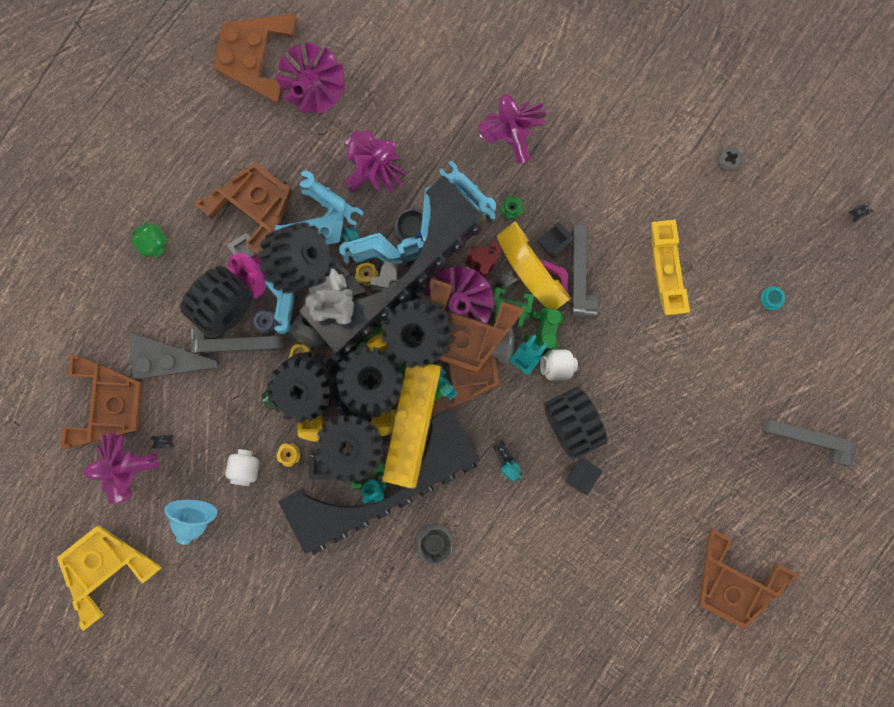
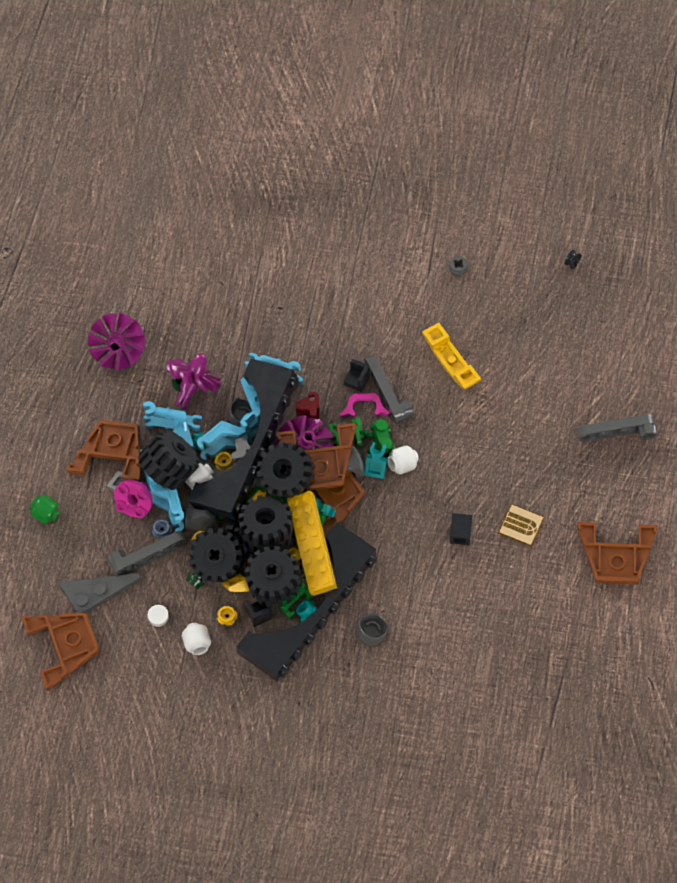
camera: 20 degrees left, 20 degrees down
(93, 562) = (111, 760): yellow wing -> none
(117, 469) = (100, 680): magenta piece -> none
(163, 442) = (123, 649): black bush -> none
(189, 518) = (173, 695): medium azure hat -> none
(216, 301) = (120, 523): black wheel -> none
(216, 419) = (158, 615): none -> white tile
(243, 51) = (52, 349): dark orange wing -> none
(331, 304) = (211, 478): light grey piece -> none
(502, 452) = (391, 540): black bush -> none
(507, 281) = (334, 418): dark grey bush -> none
(511, 213) = (312, 373): green plate -> none
(511, 471) = (405, 550): teal plate -> none
(512, 124) = (284, 306): magenta piece -> none
(530, 269) = (348, 402): yellow slope -> none
(575, 422) = (434, 489): black wheel -> none
(650, 498) = (521, 525): none -> piece
(772, 298) = (539, 345): teal plate -> none

